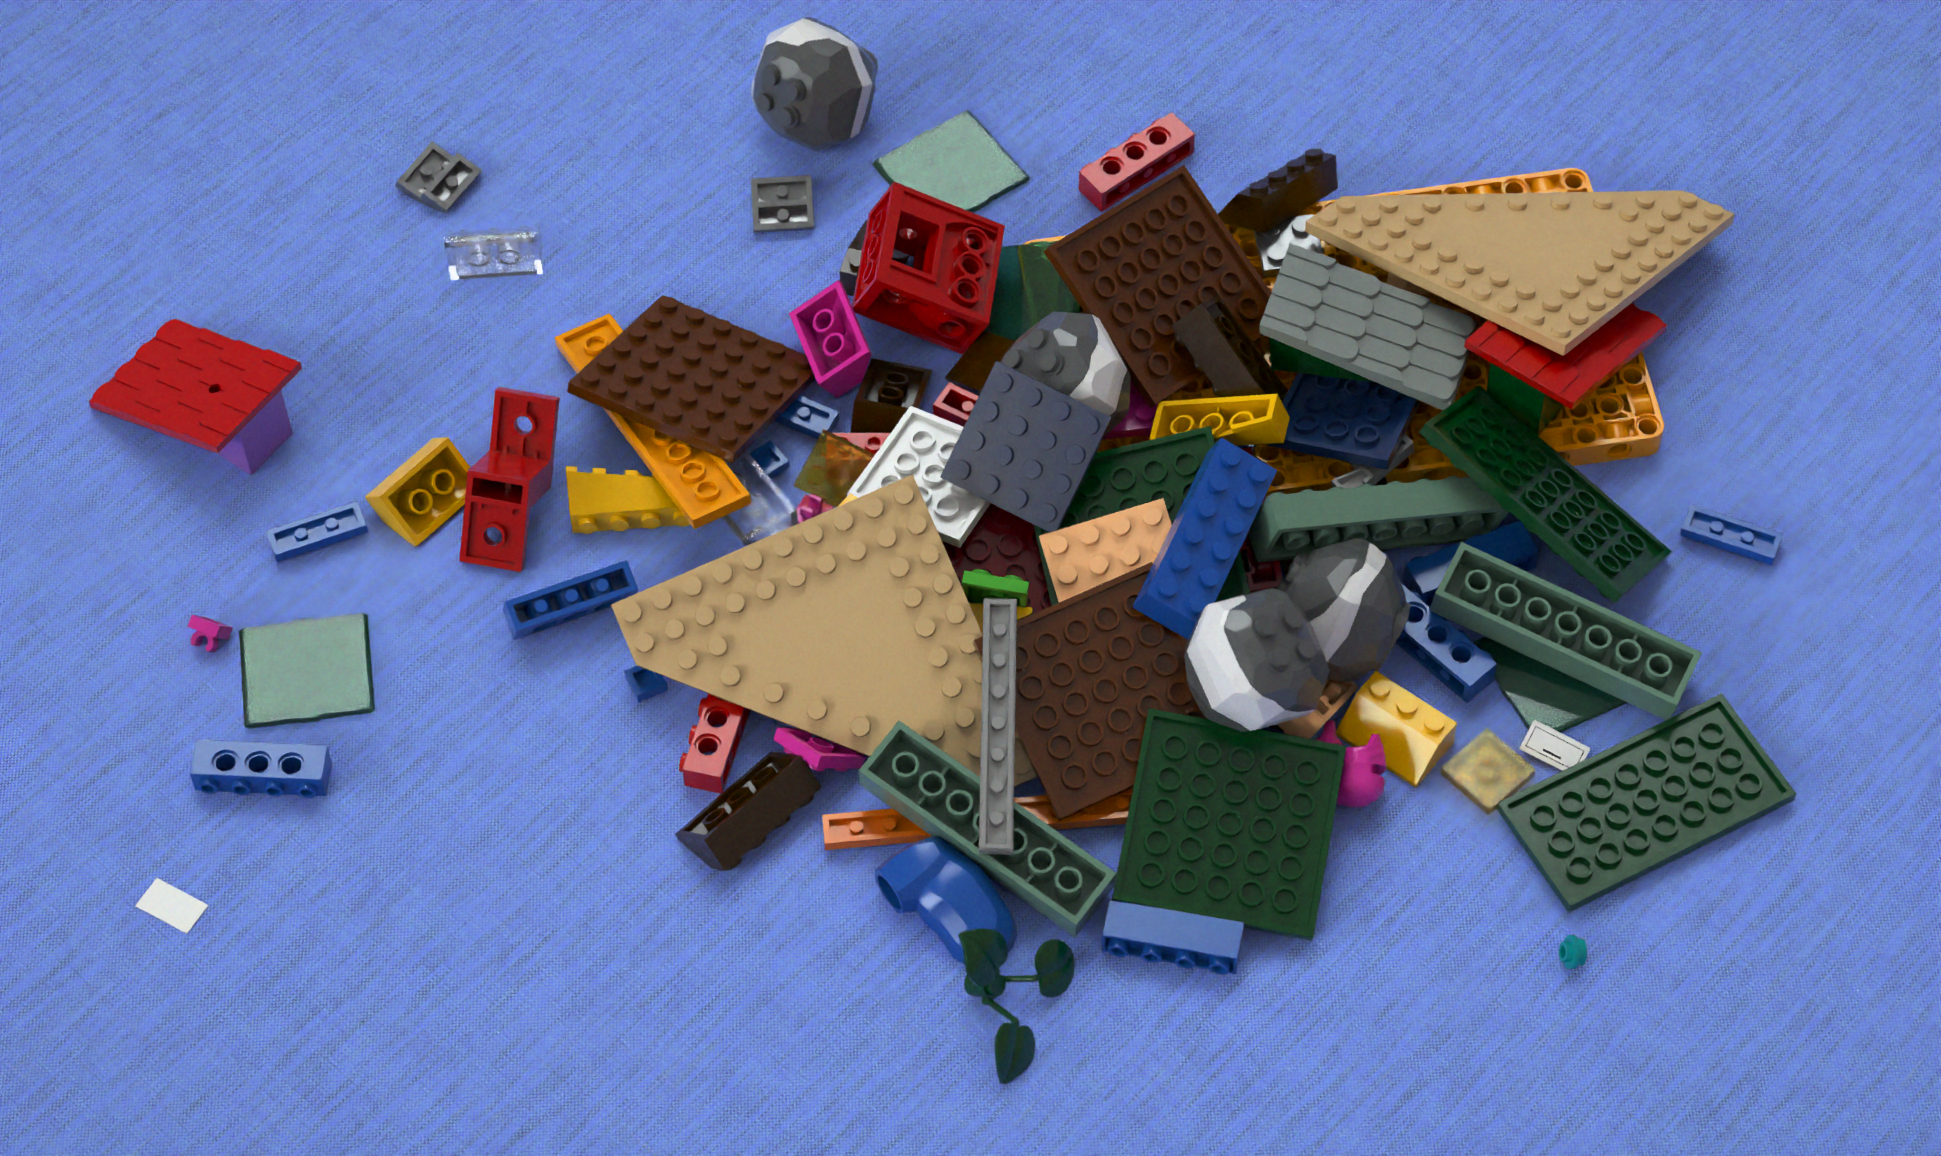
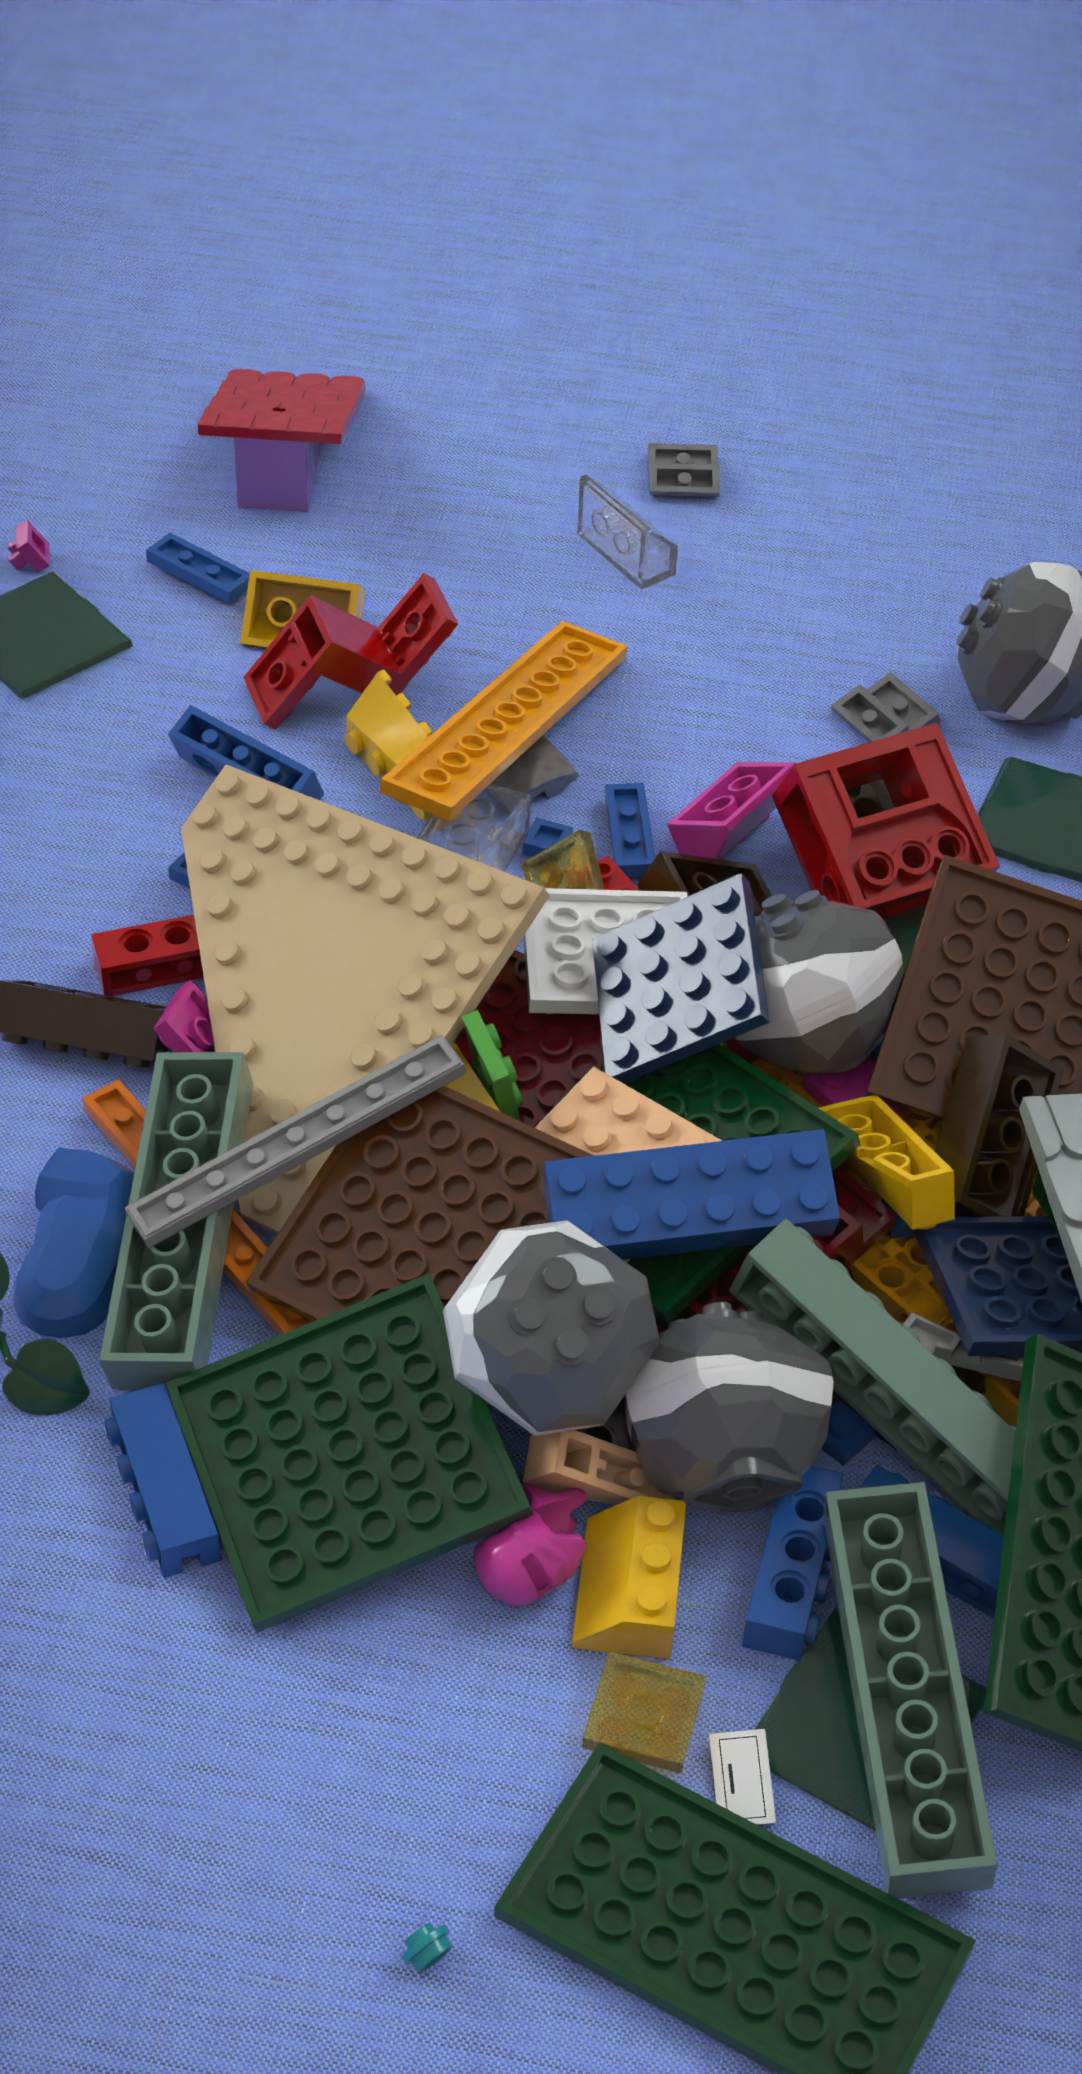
camera: 55 degrees right, 10 degrees down
(695, 378) = (586, 726): reddish brown plate -> none

